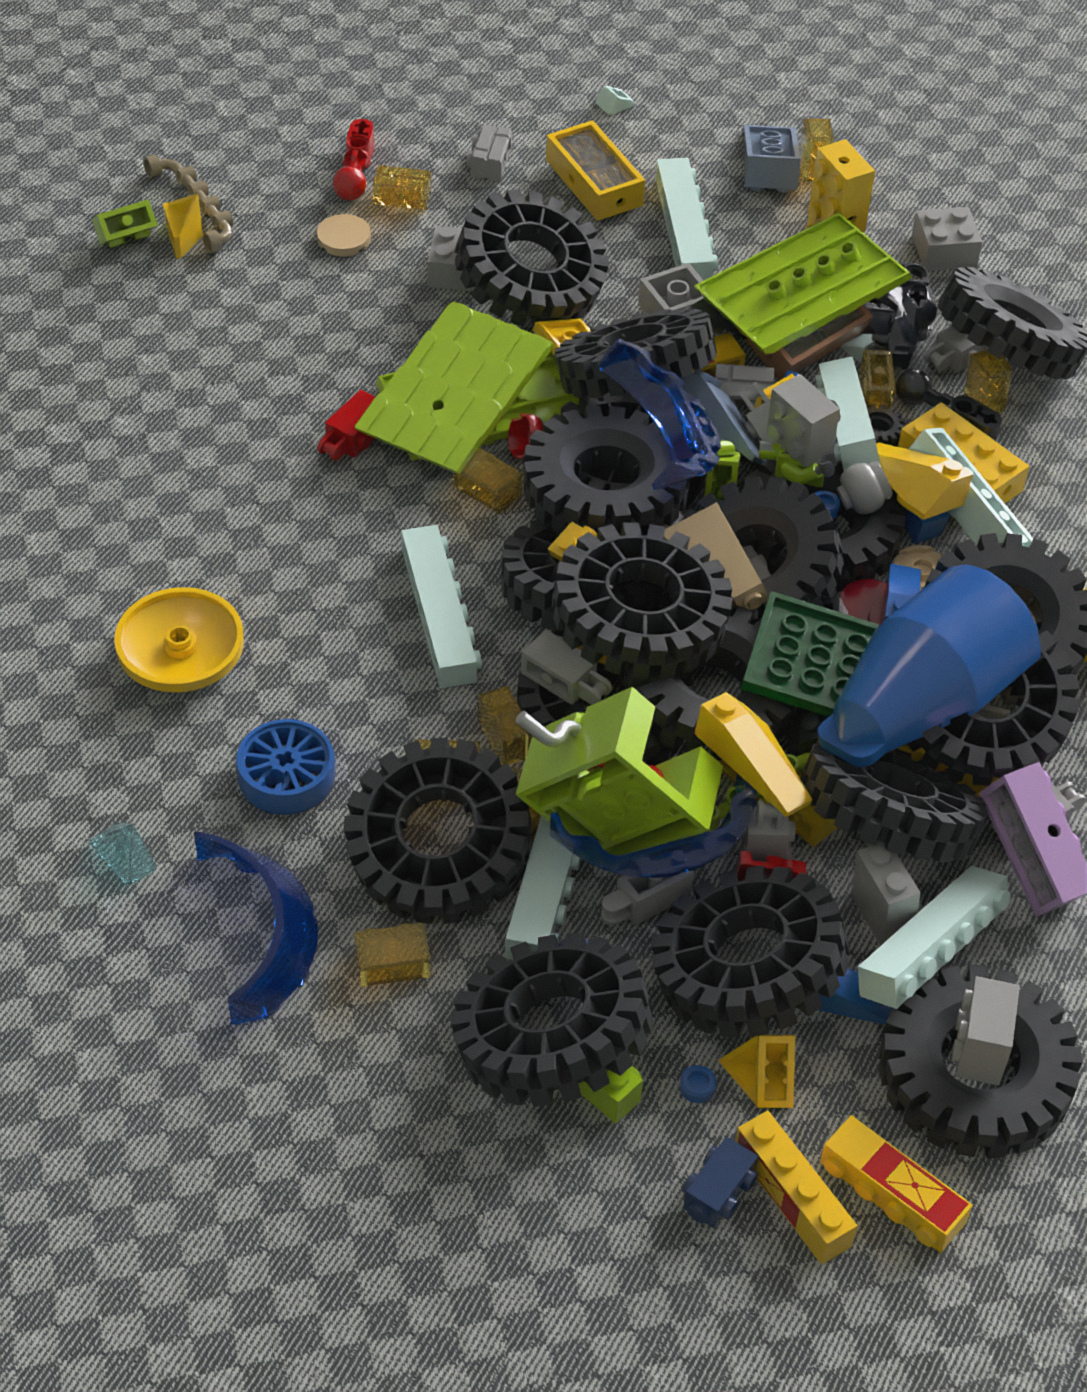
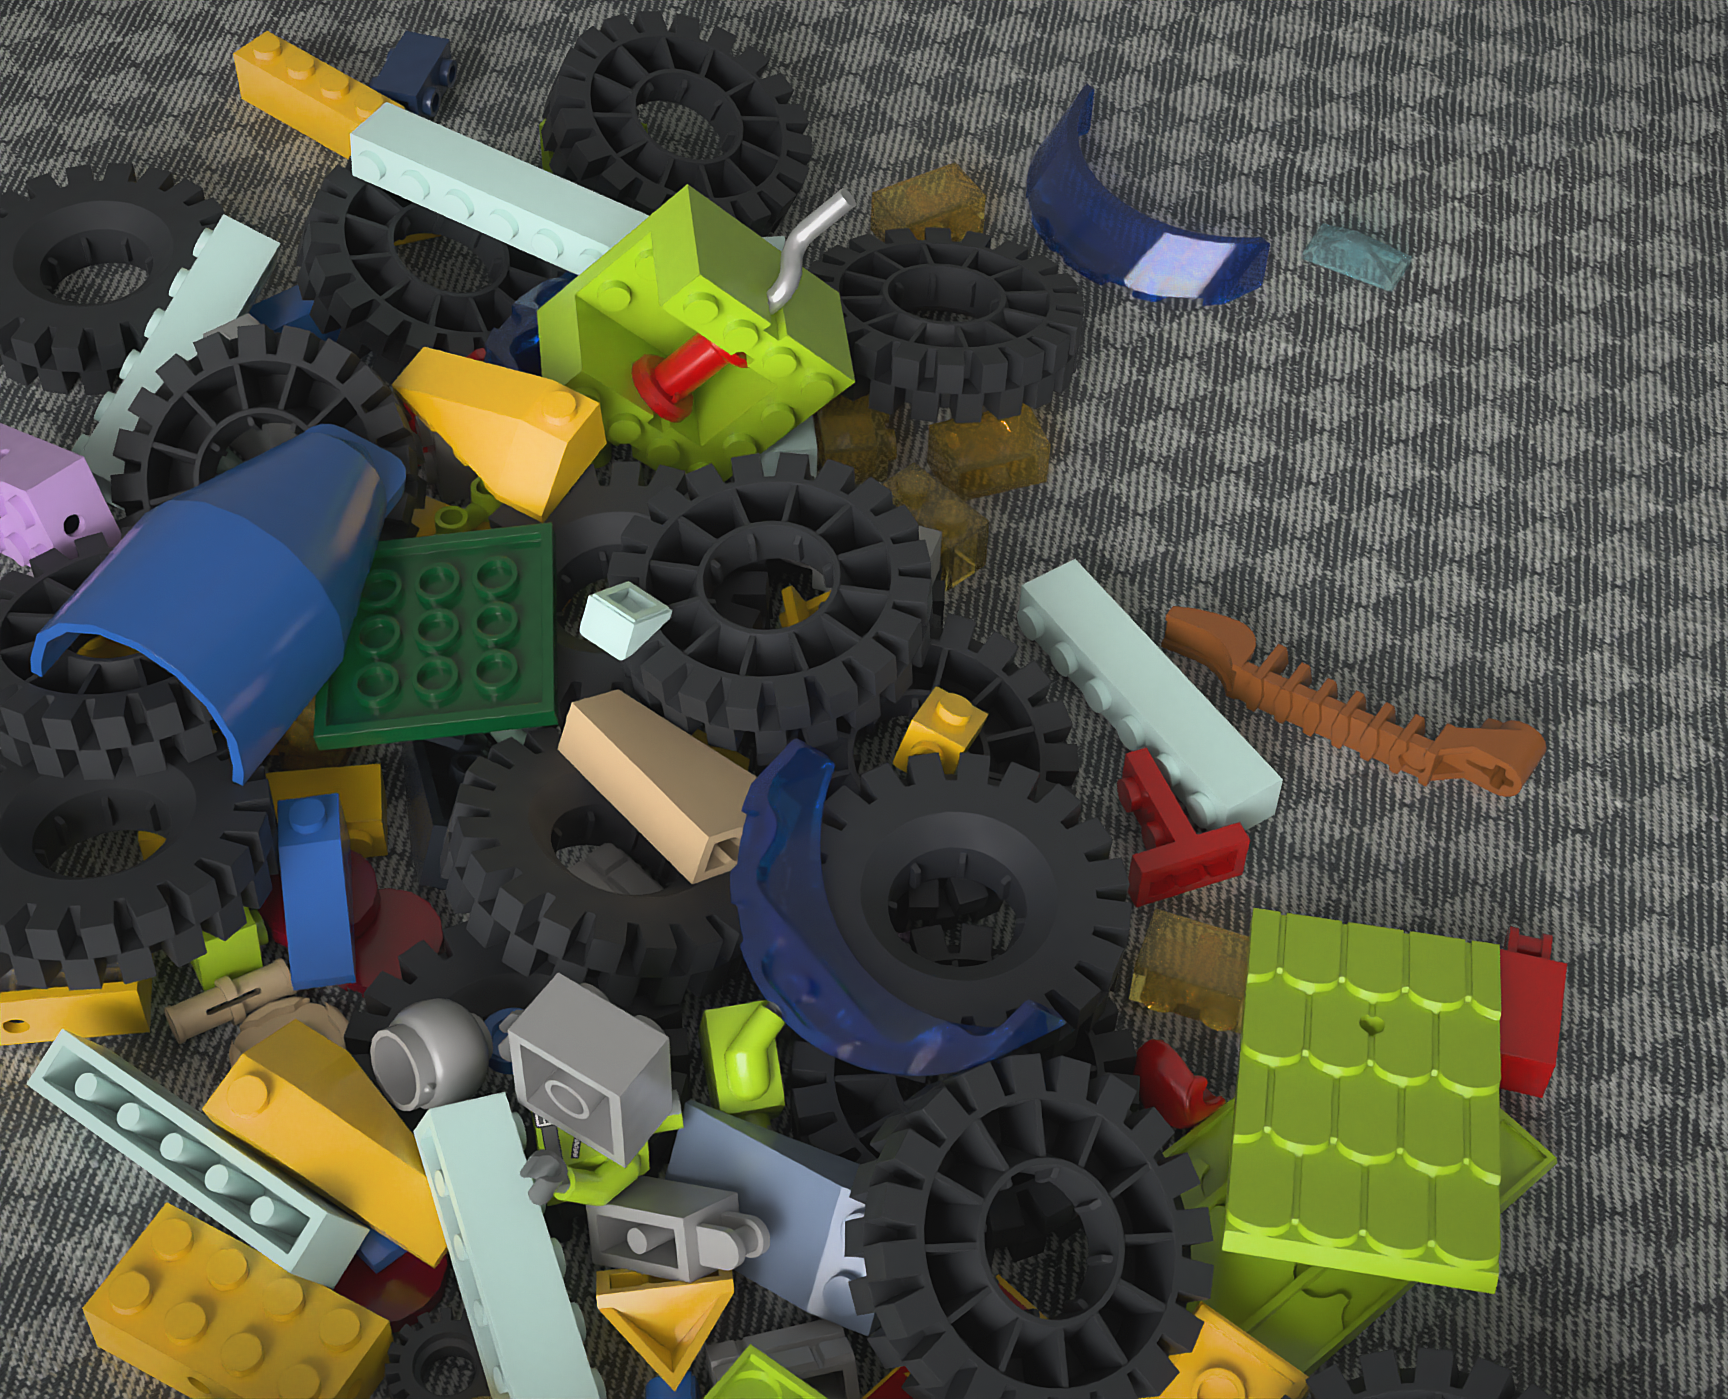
camera: 160 degrees right, 0 degrees up
(179, 639) = (1502, 508): yellow dish -> none
(285, 766) = (1216, 377): blue piece -> none
(364, 594) = (1492, 756): none -> dark orange piece
(468, 527) = (1174, 854): none -> red bracket
(712, 907) = (488, 189): none -> light aqua brick
(726, 586) = (622, 619): none -> light aqua slope
(895, 1184) = (195, 137): yellow brick -> none
(985, 1030) = (87, 210): light grey brick -> none

